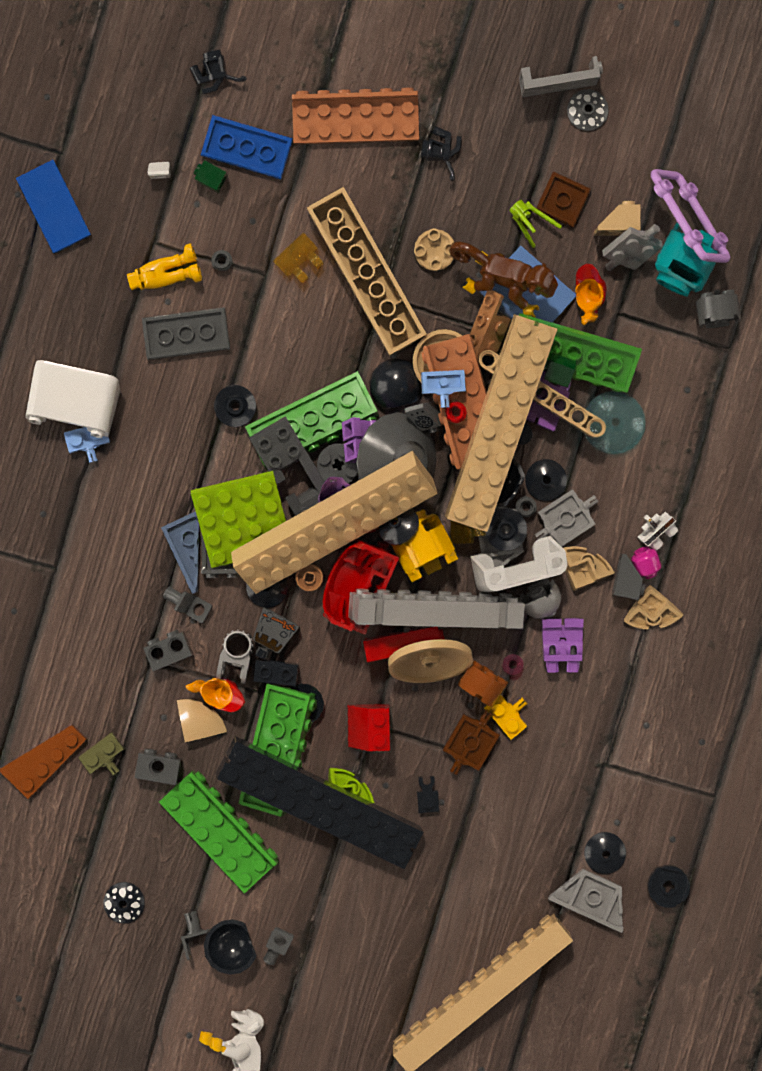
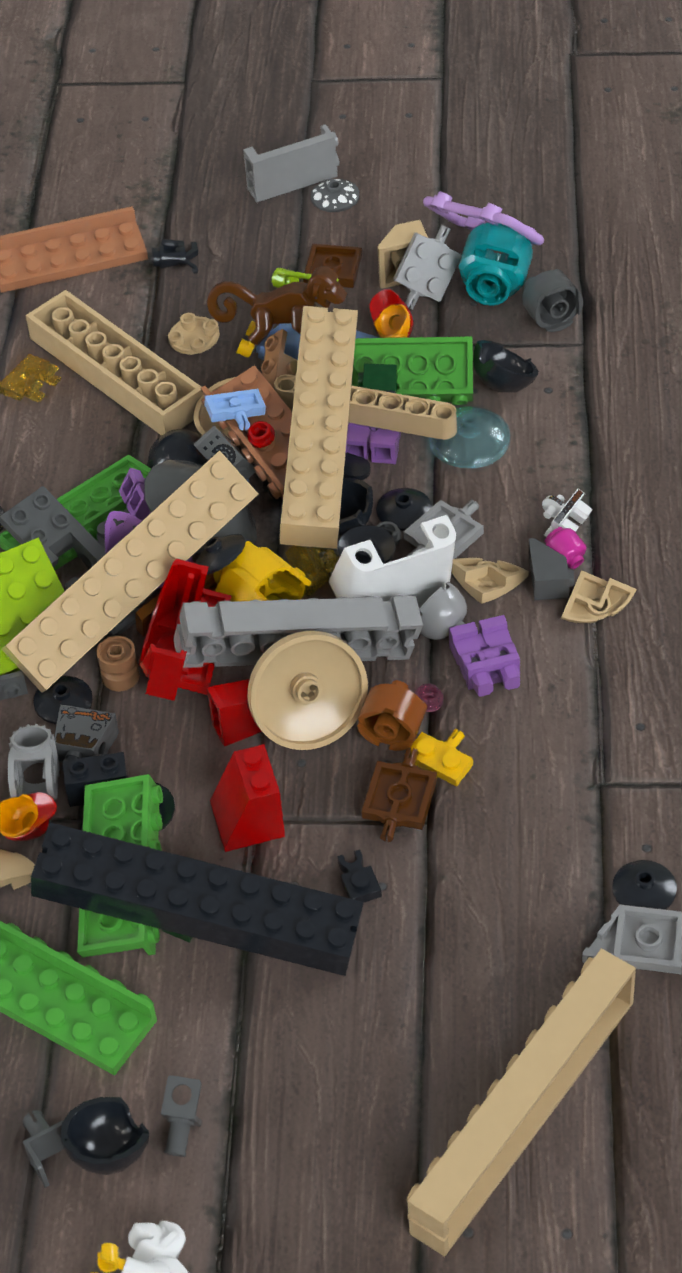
camera: 10 degrees left, 40 degrees down
(659, 372) = (502, 368): none -> black cylinder

